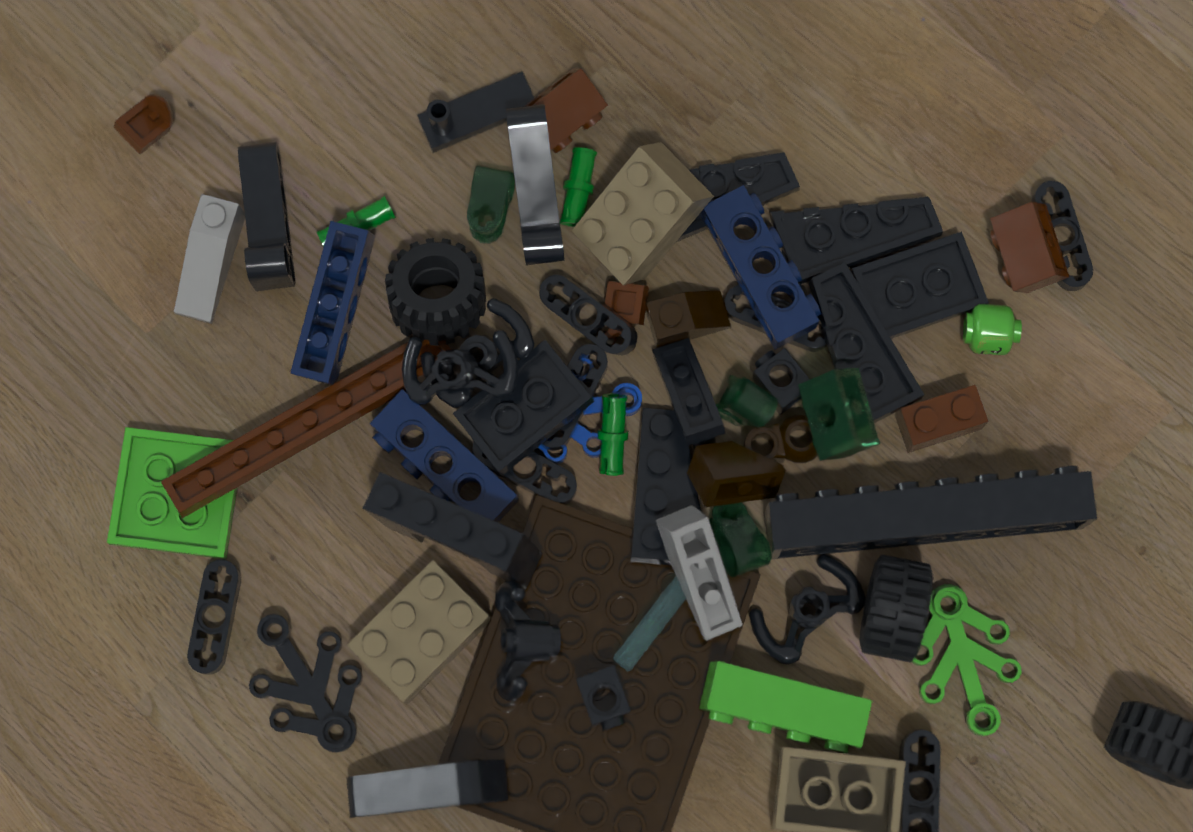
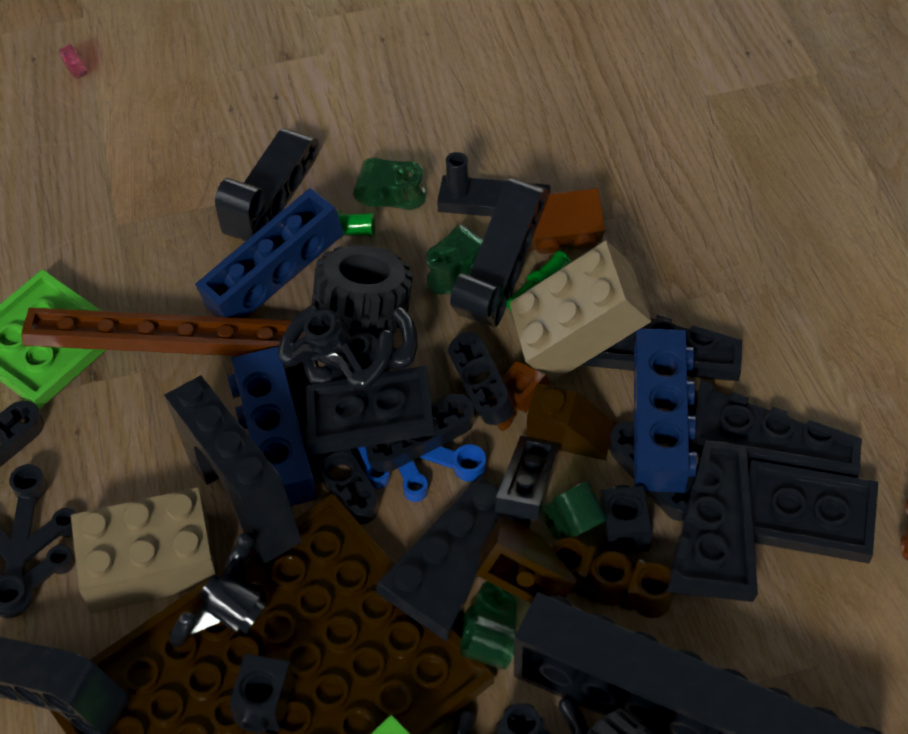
camera: 30 degrees right, 25 degrees down
(145, 122) = (231, 86): reddish brown plate -> none
(208, 257) = (195, 193): light grey slope -> none
(371, 154) = (387, 182): none -> clear green piece
(613, 434) = (436, 479): green pin -> none
(650, 626) = (363, 655): clear light blue axle -> none
(699, 570) = (430, 628): light grey slope -> none
(838, 414) = (658, 555): clear green brick -> none
(941, 418) = (765, 632): reddish brown brick -> none
(991, 329) = (862, 582): bright green head -> none

